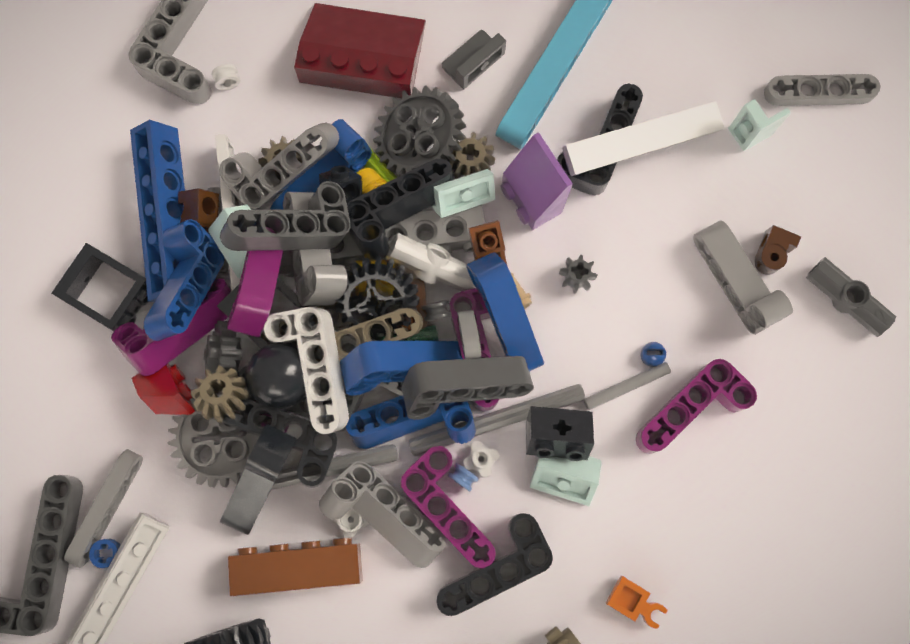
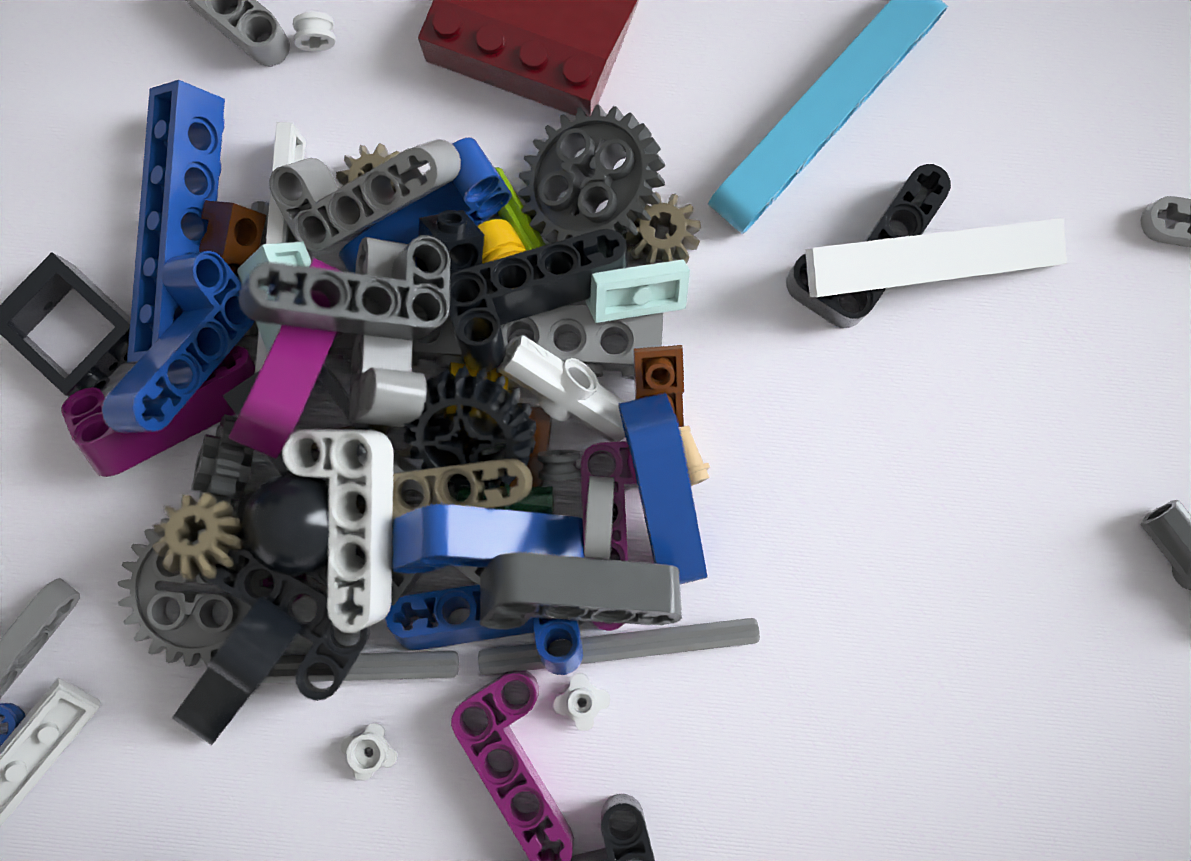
camera: 15 degrees right, 5 degrees up
(165, 391) = (126, 503): red slope -> none
(295, 568) = (270, 809): dark orange brick -> none
(385, 511) = (462, 807): light grey beam -> none
(463, 477) = (548, 725): medium blue bush -> none
(474, 58) = (701, 74): dark grey panel -> none
(536, 183) = (753, 297): medium lavender slope -> none
(559, 433) = (730, 686): black brick -> none
(567, 478) = (706, 751): light aqua panel -> none
(585, 272) = (801, 444): dark grey gear -> none
(627, 386) = (827, 635): light grey bar -> none
(653, 360) = (877, 605): blue hinge -> none
(688, 410) = (914, 698): magenta beam -> none
(740, 279) = (1038, 509): light grey beam -> none
(753, 125) = (1115, 269): light aqua panel -> none
(774, 249) = (1099, 471): reddish brown leg -> none

